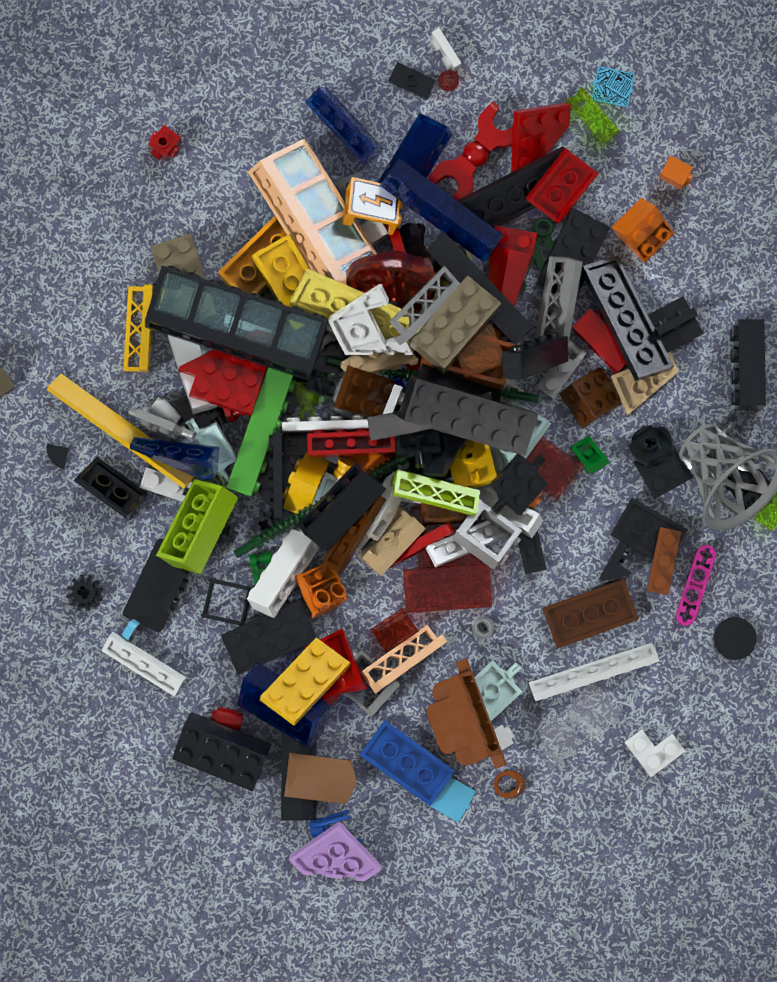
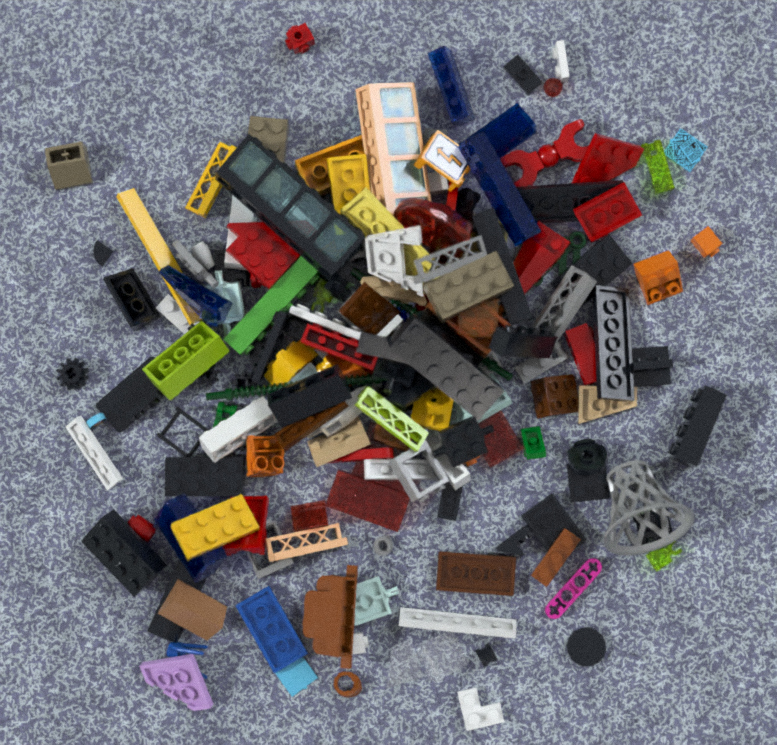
camera: 25 degrees right, 0 degrees up
(637, 691) = (486, 655): none -> black wheel

